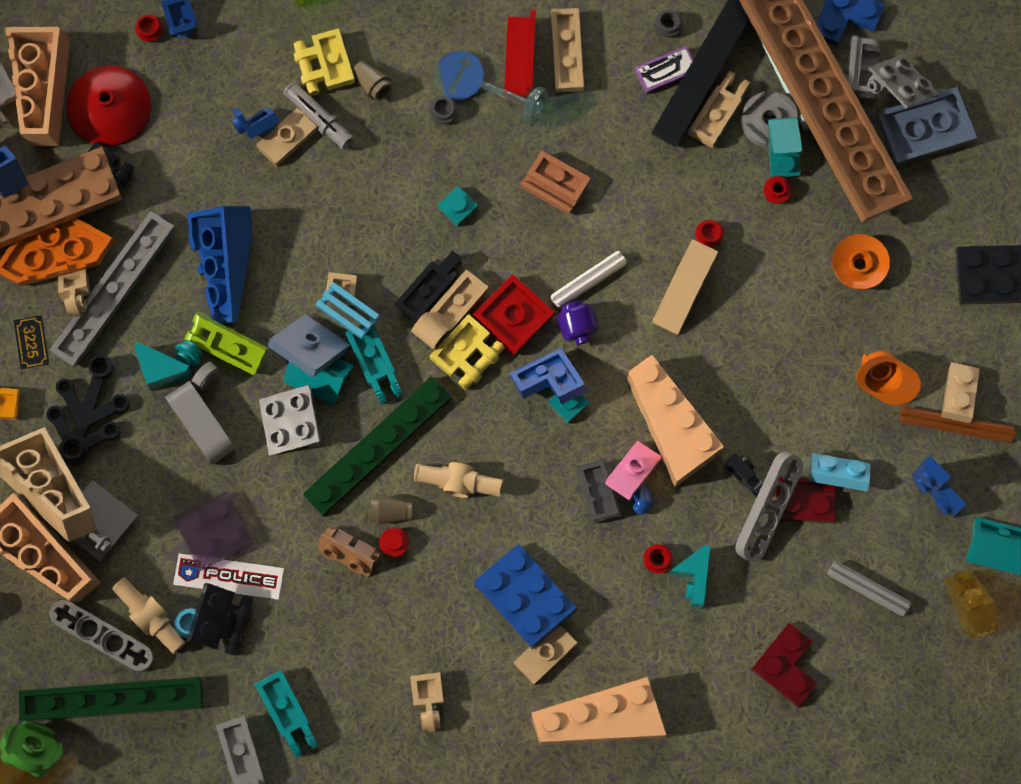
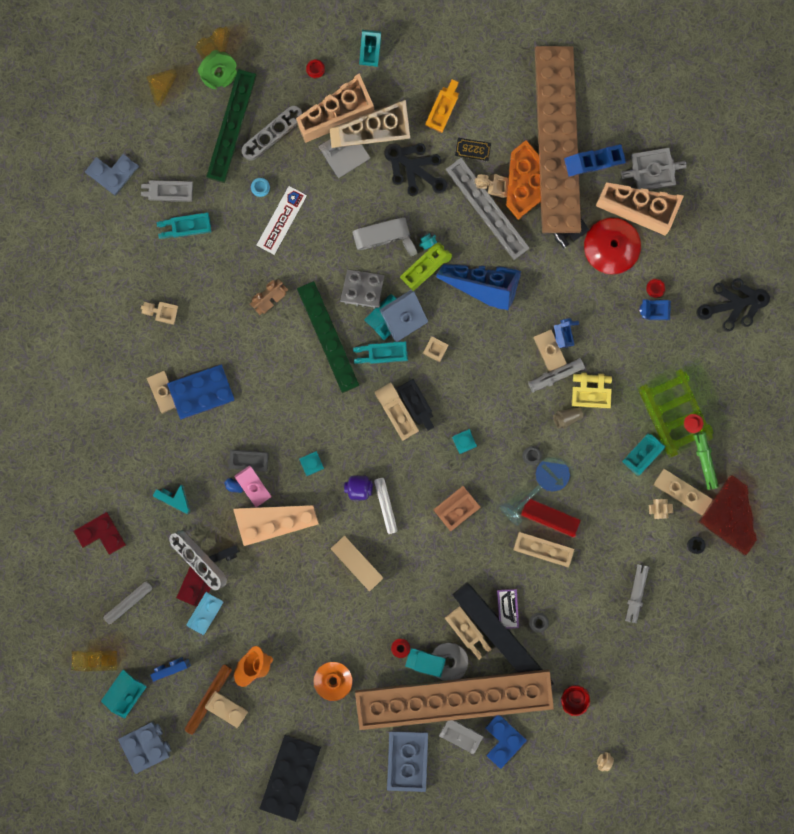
camera: 110 degrees right, 10 degrees up
(149, 615) = (273, 164): tan pin -> none
(159, 368) = (425, 220): teal slope -> none
(211, 617) = (258, 201): black plate -> none
(213, 531) = (311, 219): clear purple plate -> none
(328, 296) = (423, 334): medium azure tile -> none
(389, 510) = (284, 329): dark tan cone -> none
(394, 542) = (263, 325): red plate -> none
(458, 480) = (287, 378): tan pin -> none
(460, 346) = (371, 409): light yellow plate -> none
(513, 314) = (379, 450): red plate -> none
(552, 371) = (334, 459): blue plate -> none
(604, 716) = (110, 411): light nougat wedge -> none
(660, 550) = (187, 481): red plate -> none
(709, 233) = (387, 593): red plate -> none
(901, 80) = (439, 755): light grey hinge -> none

